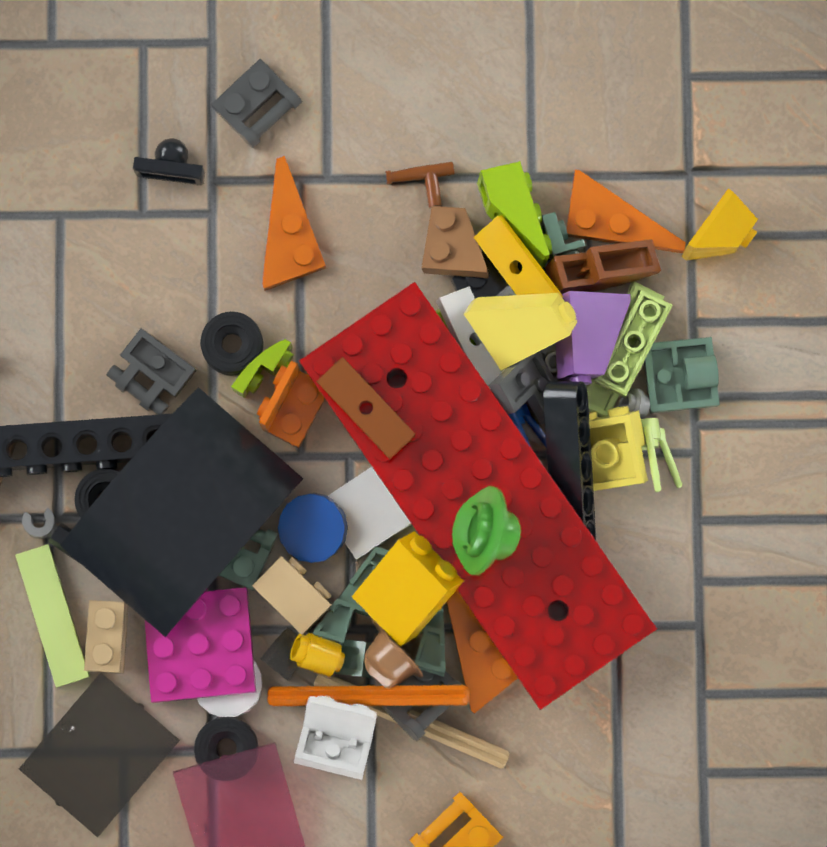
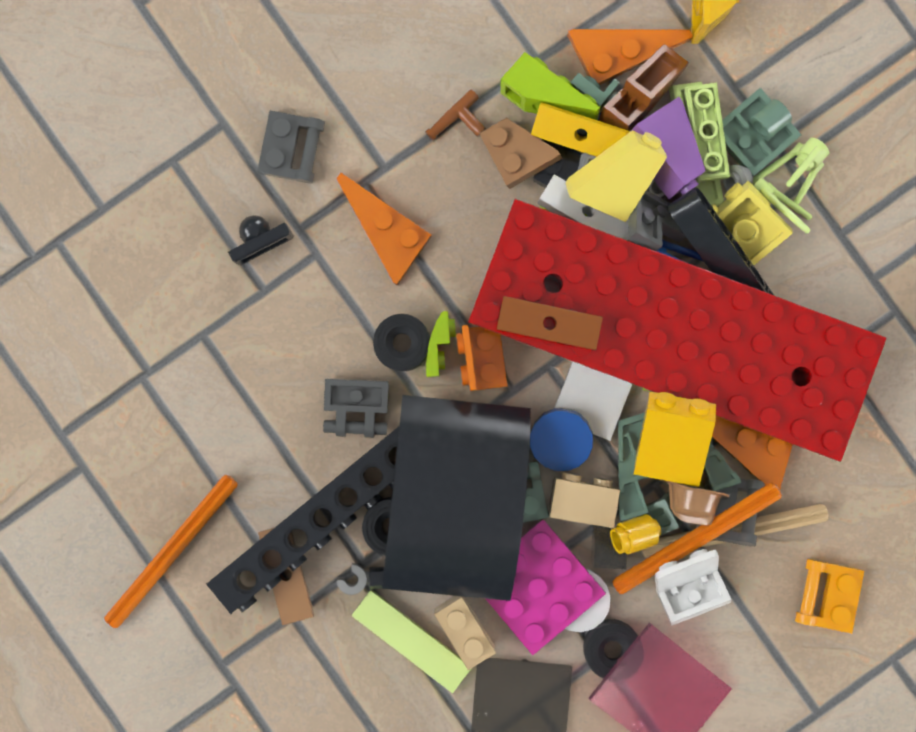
camera: 30 degrees left, 5 degrees up
(484, 531) = (711, 356): bright green hat -> none
(715, 429) = (809, 158): none -> yellowish green plant

